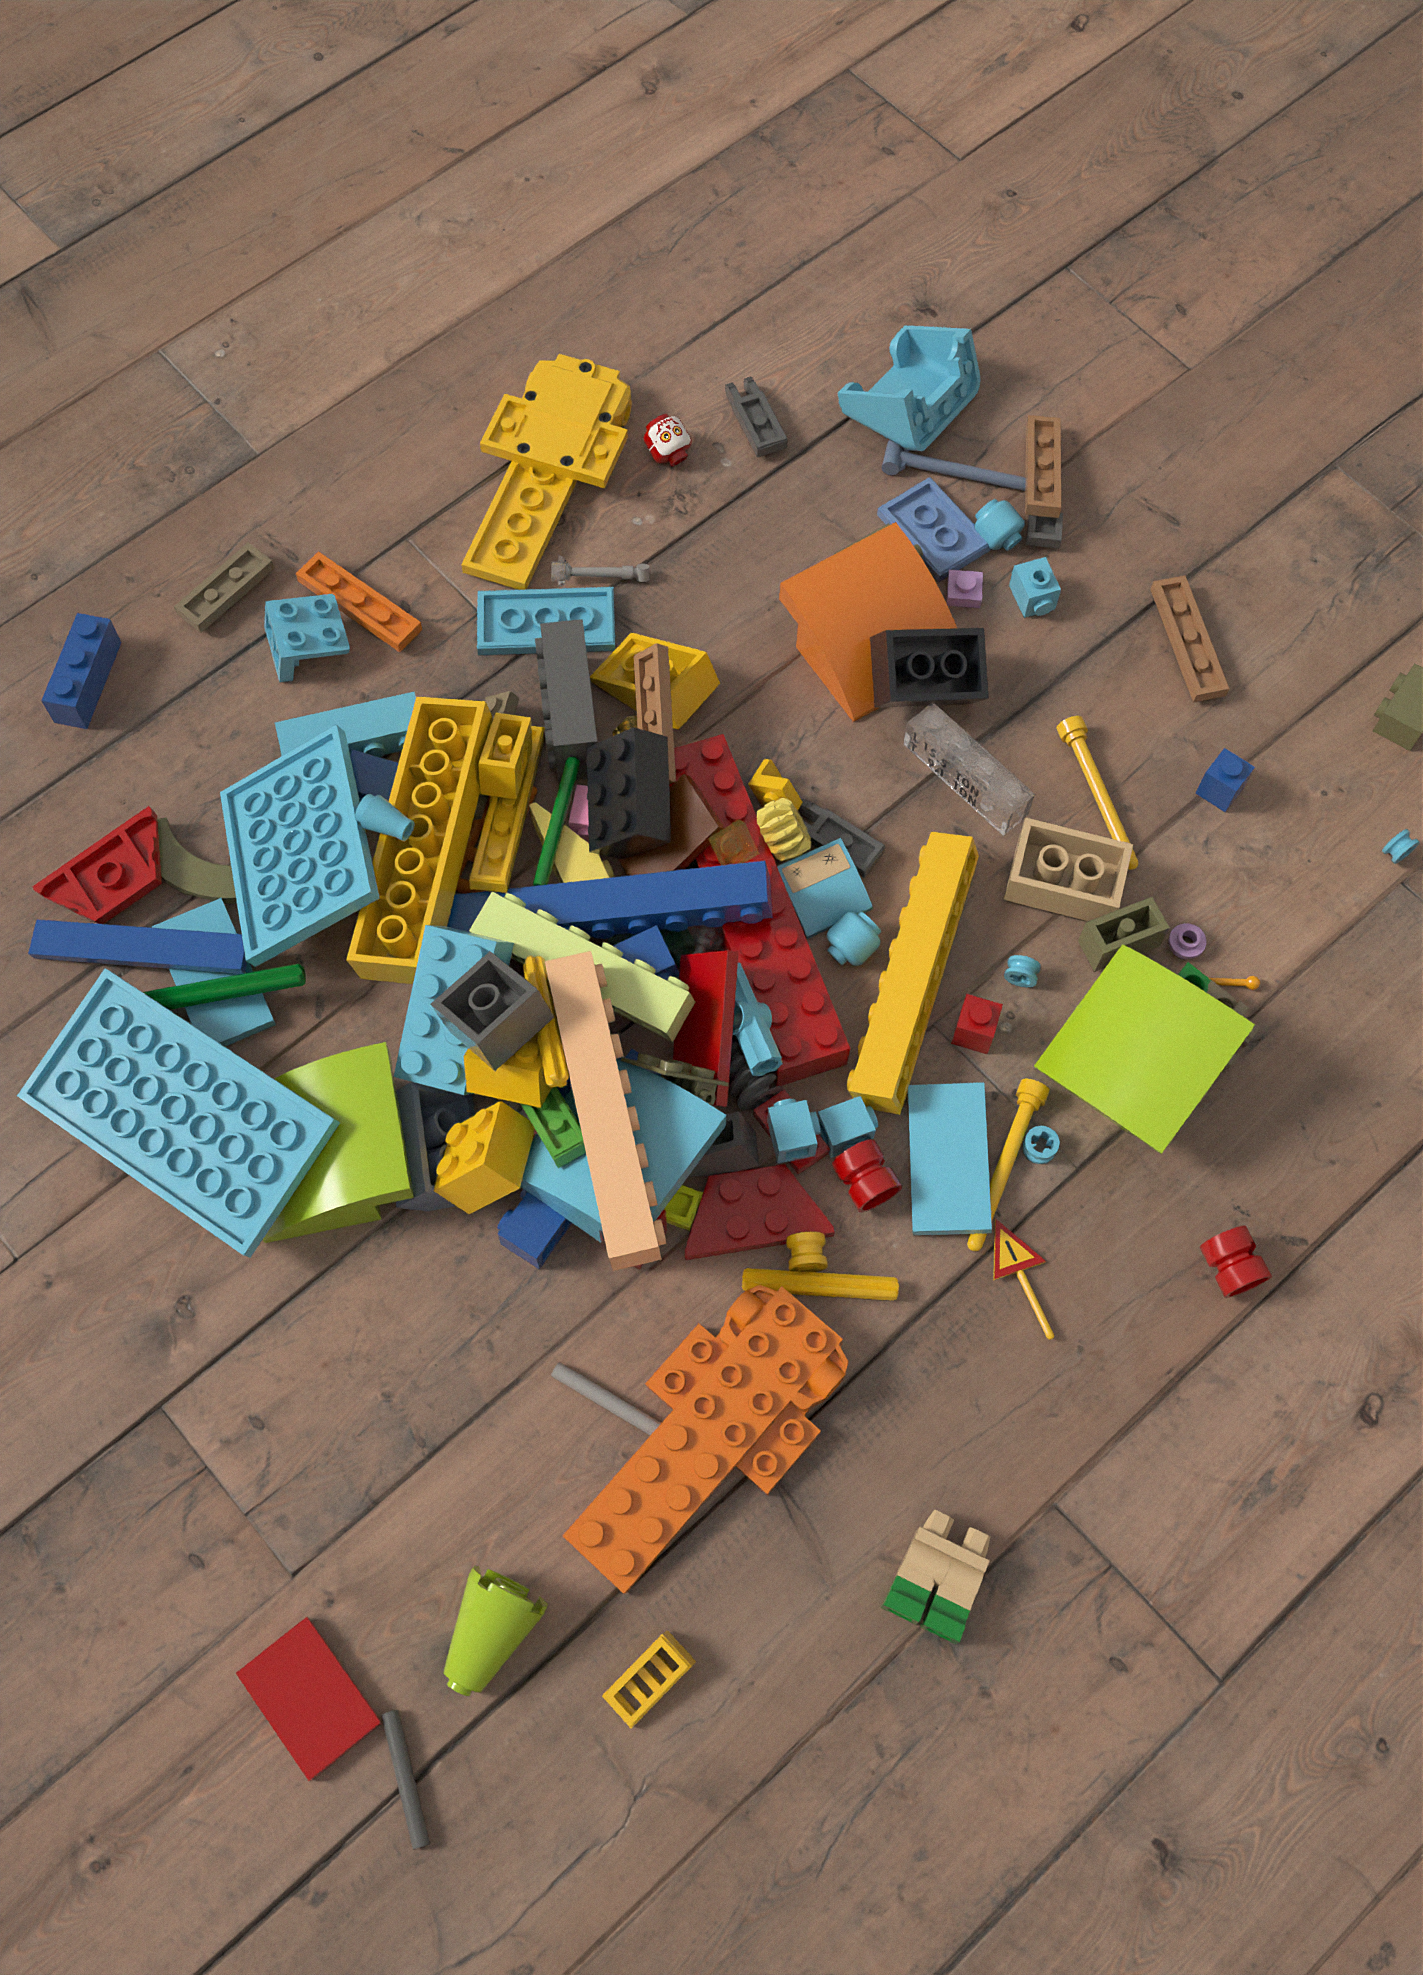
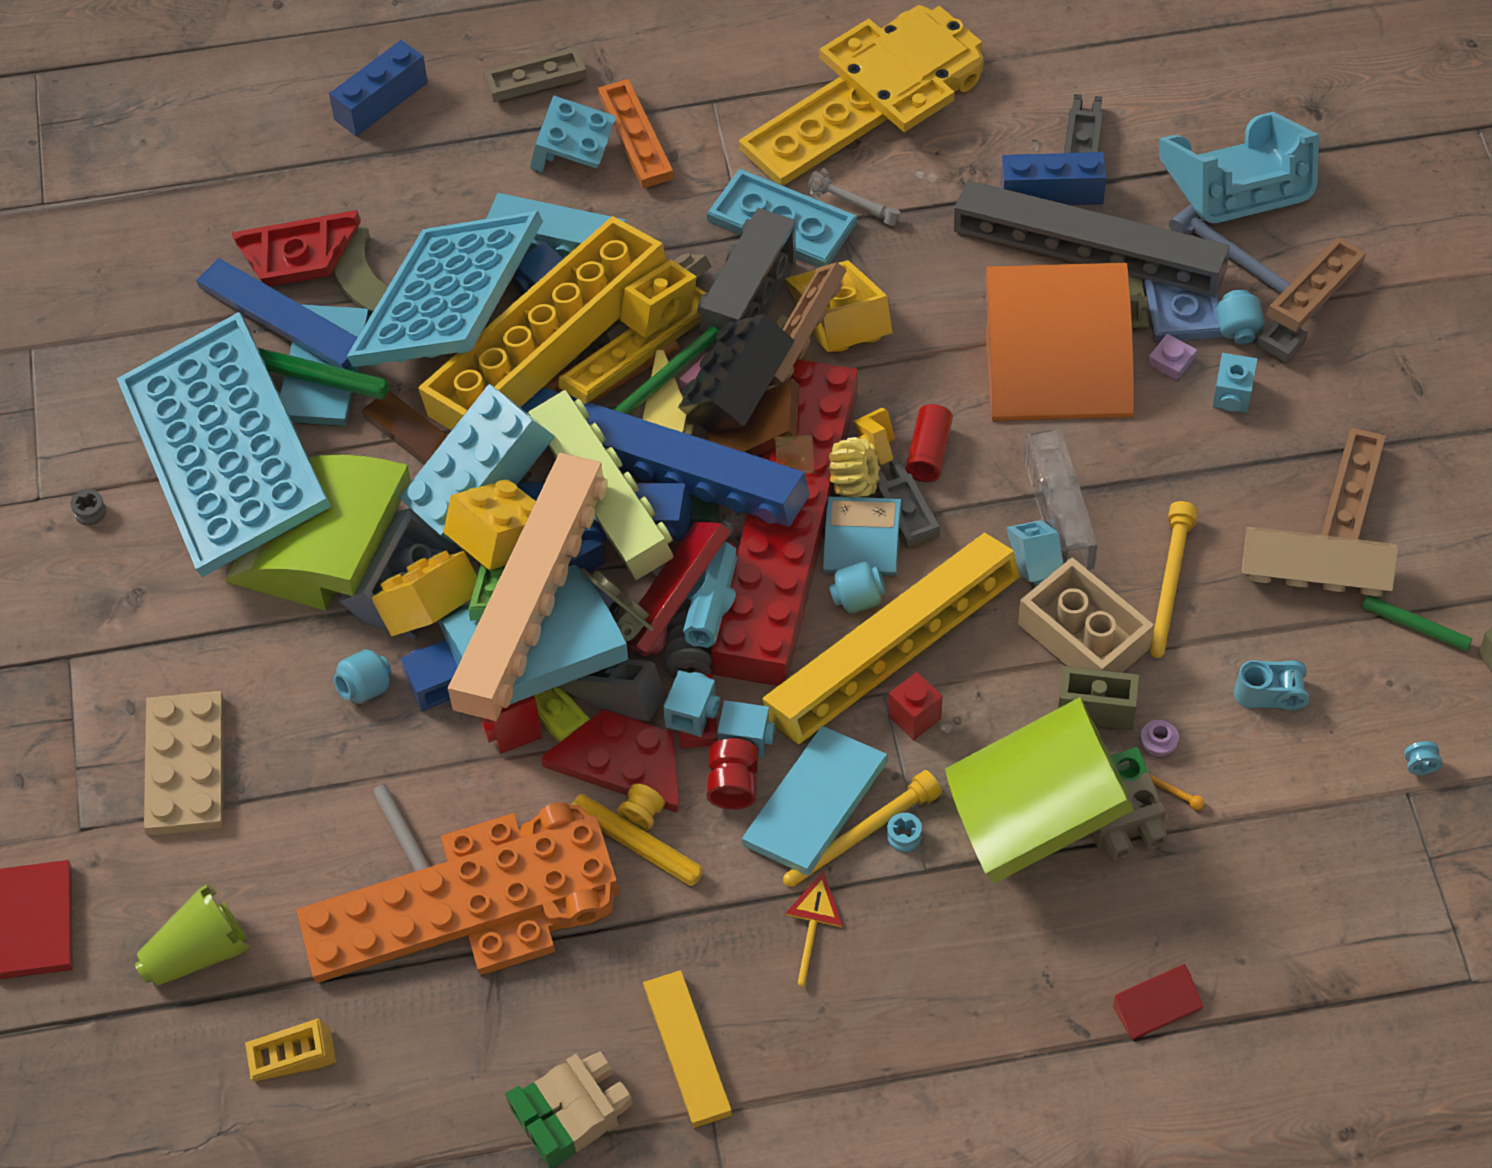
camera: 35 degrees right, 10 degrees down
(84, 1249) = (86, 498): none -> dark grey bush
(350, 1000) = (404, 426): none -> reddish brown tile
(350, 1450) = (184, 763): none -> tan plate
(382, 817) = (516, 290): medium azure cone -> none
(405, 1779) = (60, 1017): dark grey bar -> none
(467, 1269) = (362, 676): none -> medium azure head
(492, 1010) = (490, 466): dark grey brick -> none
(549, 1036) = (512, 530): yellow axle -> none
(667, 440) = (988, 117): head -> none
(762, 472) = (1056, 176): none -> blue brick
(821, 770) = (929, 443): none -> red pin
(831, 512) = (1091, 237): none -> dark grey brick
(929, 667) = (1078, 397): black brick -> none
(980, 818) = (1036, 550): none -> medium azure slope
(997, 1456) = (687, 1049): none -> yellow tile
(1022, 971) = (988, 686): medium azure bush -> none
(1210, 714) = (1319, 559): none -> tan brick
(1224, 780) = (1292, 621): blue brick -> none
(1236, 1264) = (1003, 1008): red wheel -> none
(1248, 843) = (1274, 685): none -> medium azure piece
(1312, 729) = (1417, 623): none -> green bar
(1345, 1181) = (1157, 1002): none -> red slope

